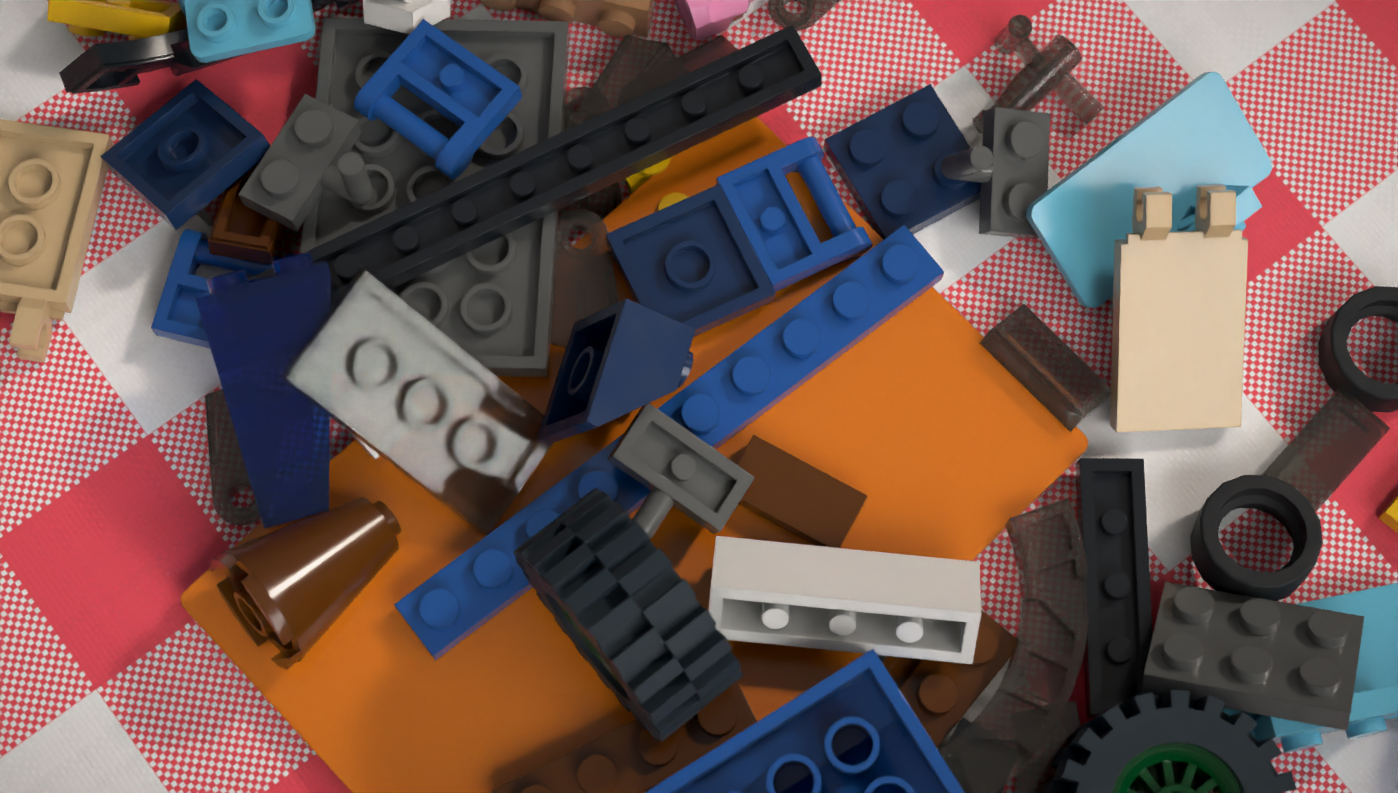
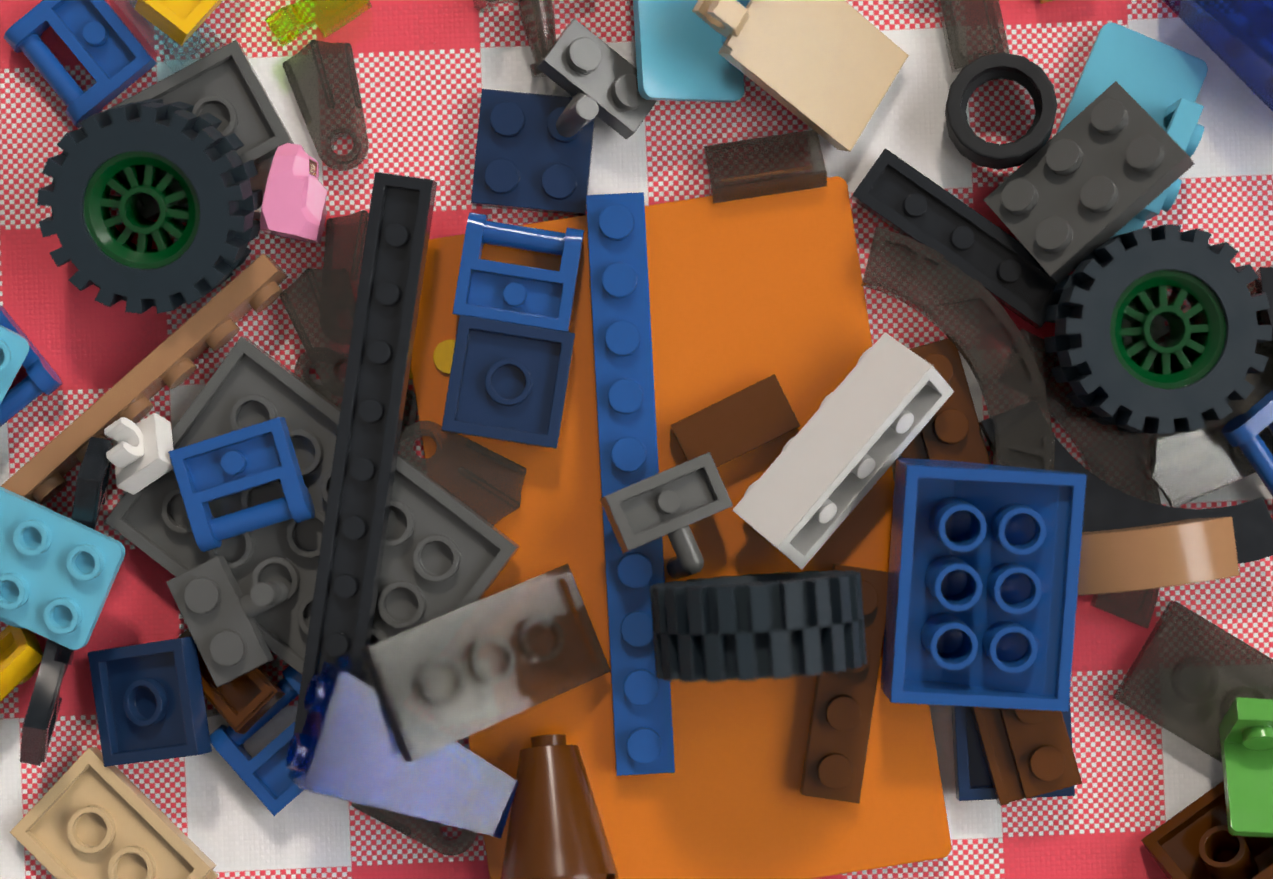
camera: 55 degrees left, 15 degrees up
(615, 366) = (564, 506): dark blue slope -> none

